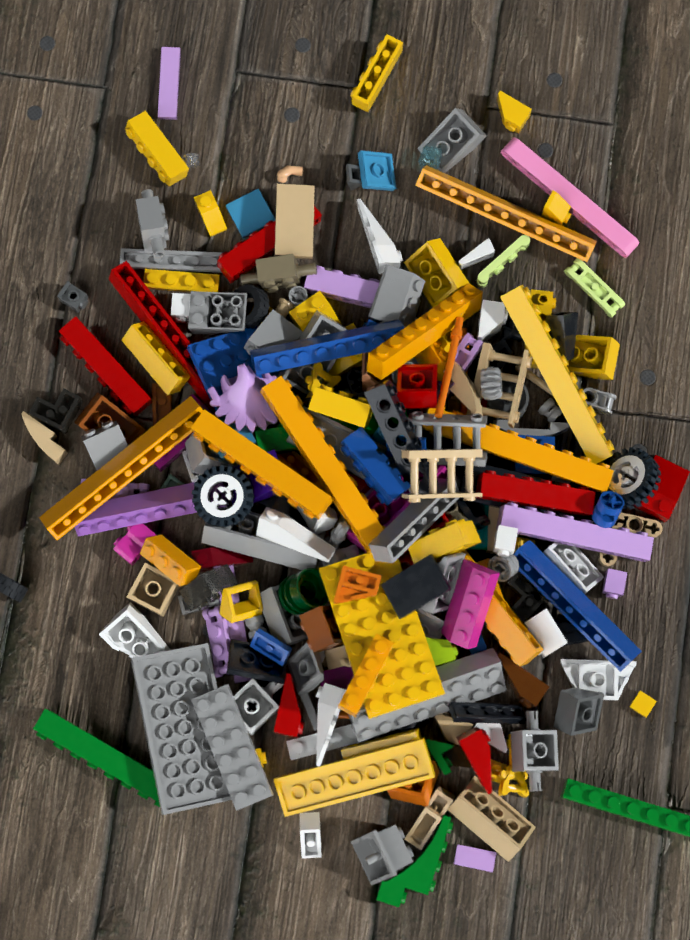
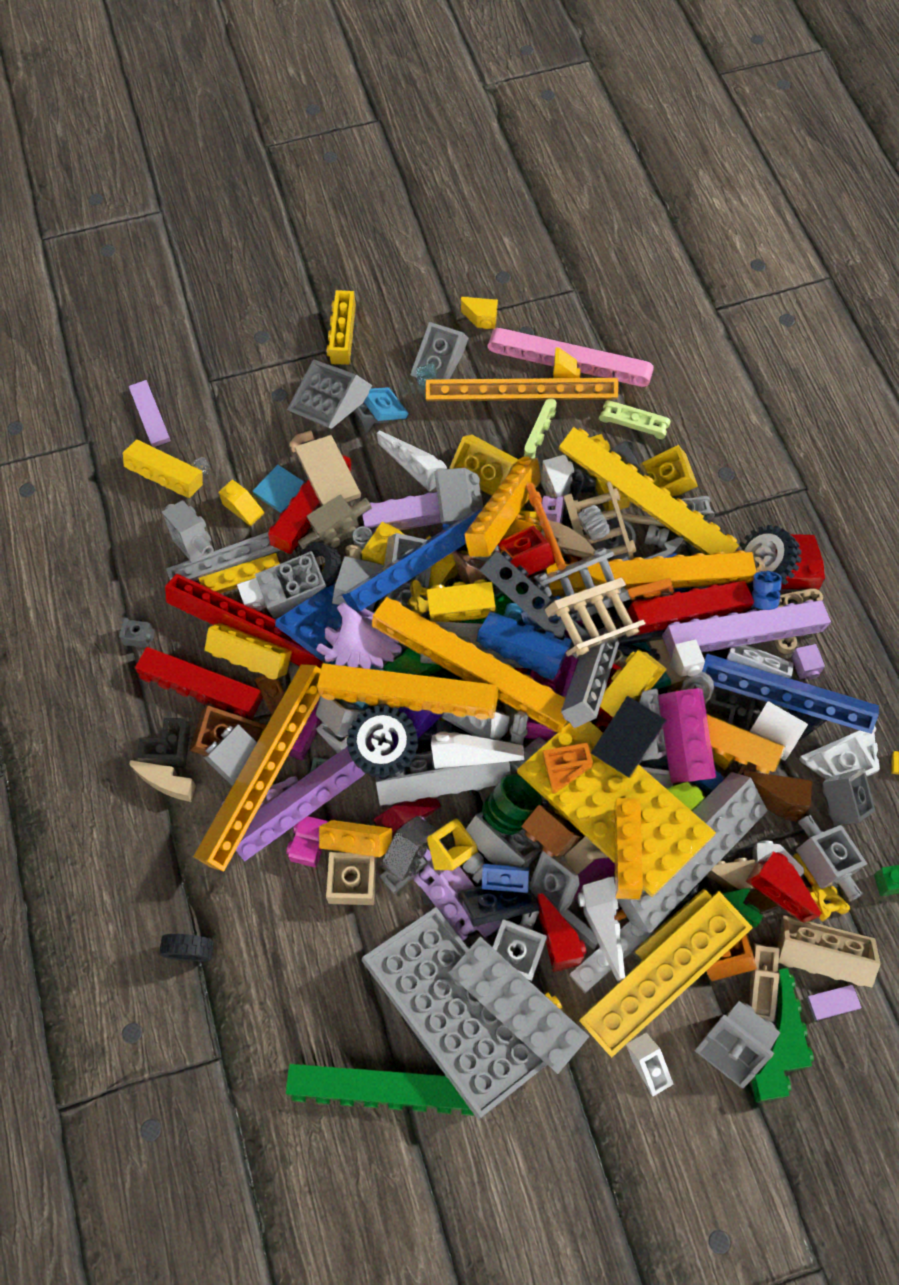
camera: 25 degrees left, 15 degrees down
(132, 633) = (348, 936): white wedge -> none
(329, 143) = (328, 394): none -> light grey slope
(478, 254) = (515, 434): white slope -> none
(487, 713) = (762, 840): black tile -> none
(506, 468) = (648, 591): none -> orange tile

